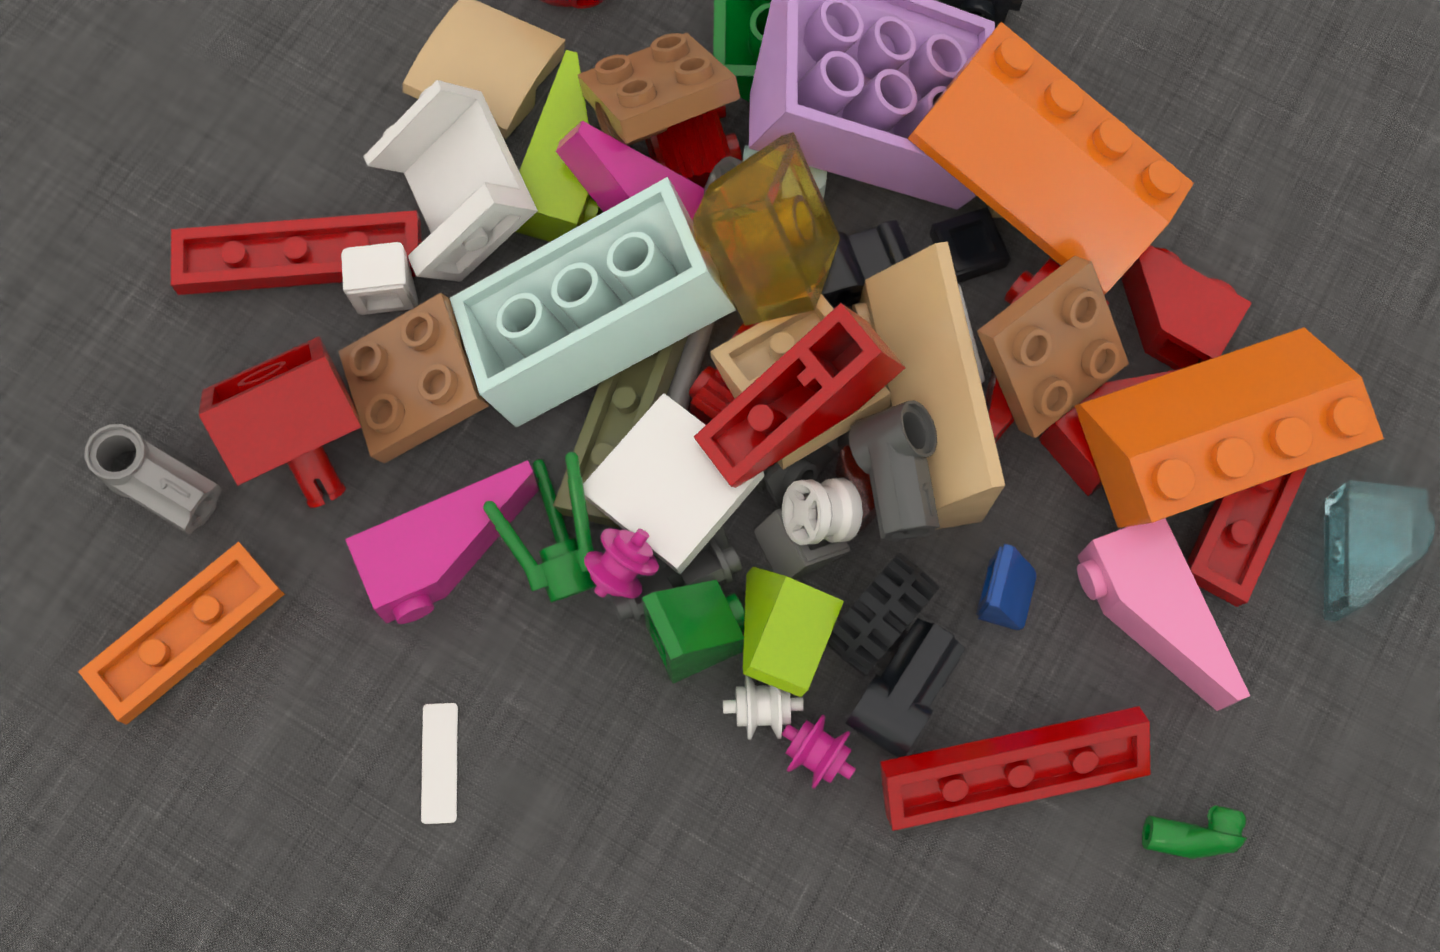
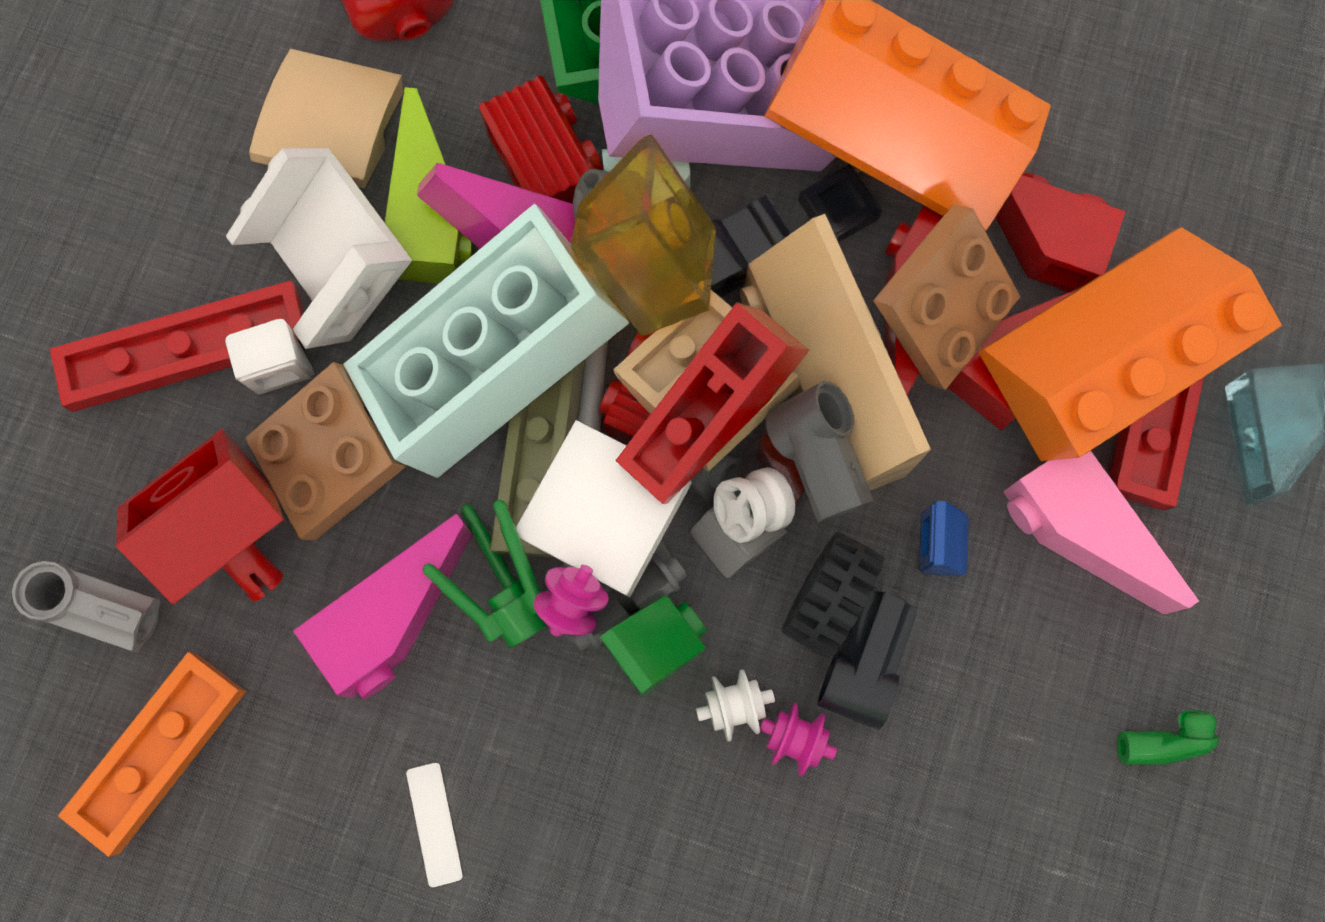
camera: 10 degrees left, 5 degrees up
(656, 87) = (504, 111): medium nougat plate -> none
(785, 630) = (743, 630): lime slope -> none
(1016, 768) = (988, 714): red plate -> none

